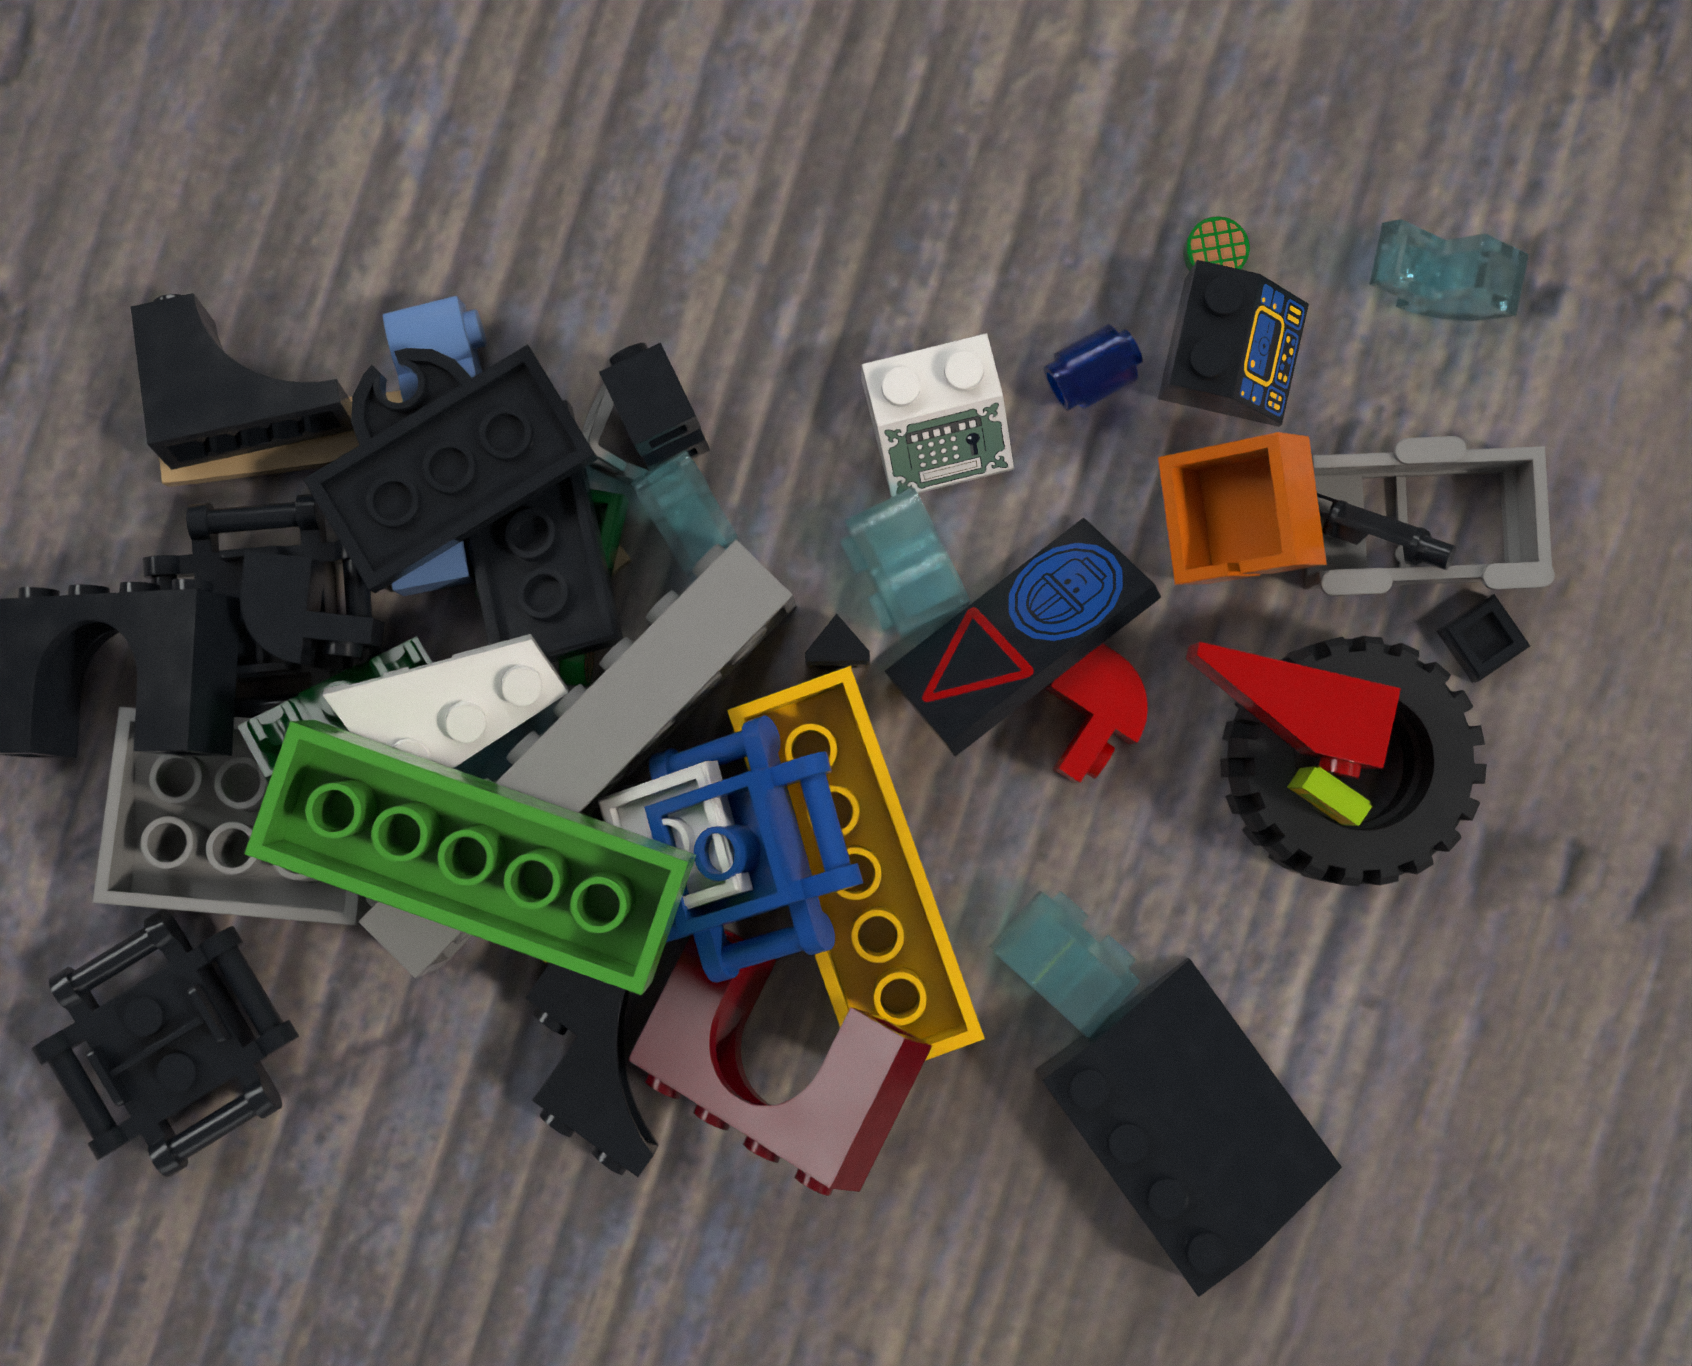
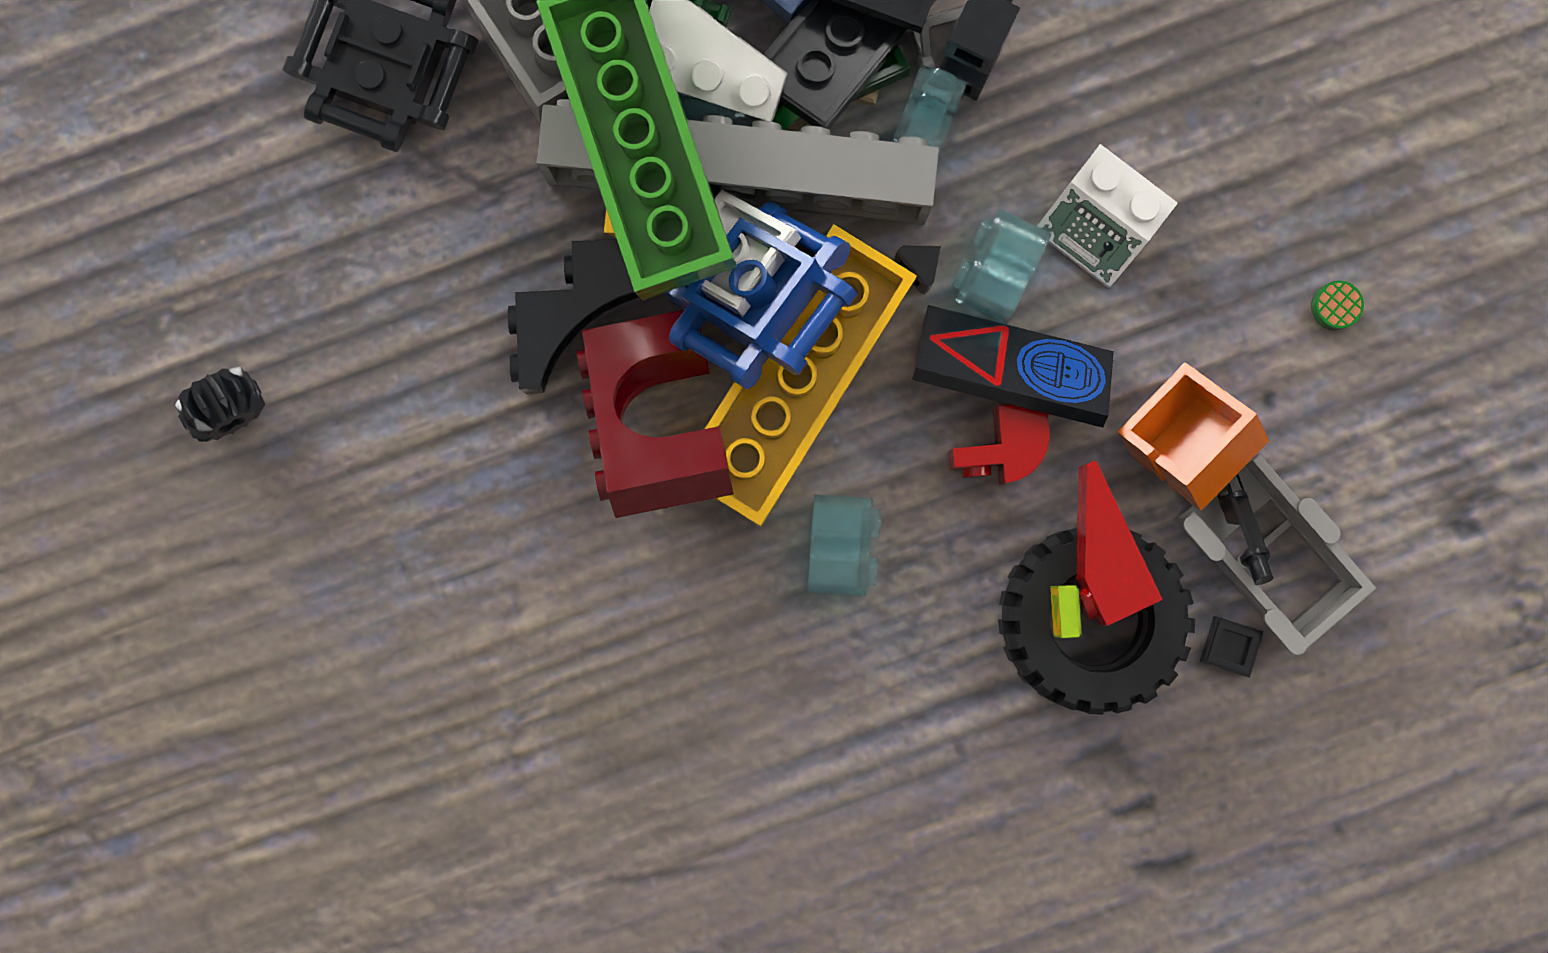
camera: 45 degrees right, 0 degrees up
(1093, 367) = (1208, 286): clear blue brick -> none
(1191, 1125) = (804, 694): black slope -> none
(1233, 344) = (1289, 359): black slope -> none
(1448, 278) = (1430, 454): clear light blue brick -> none

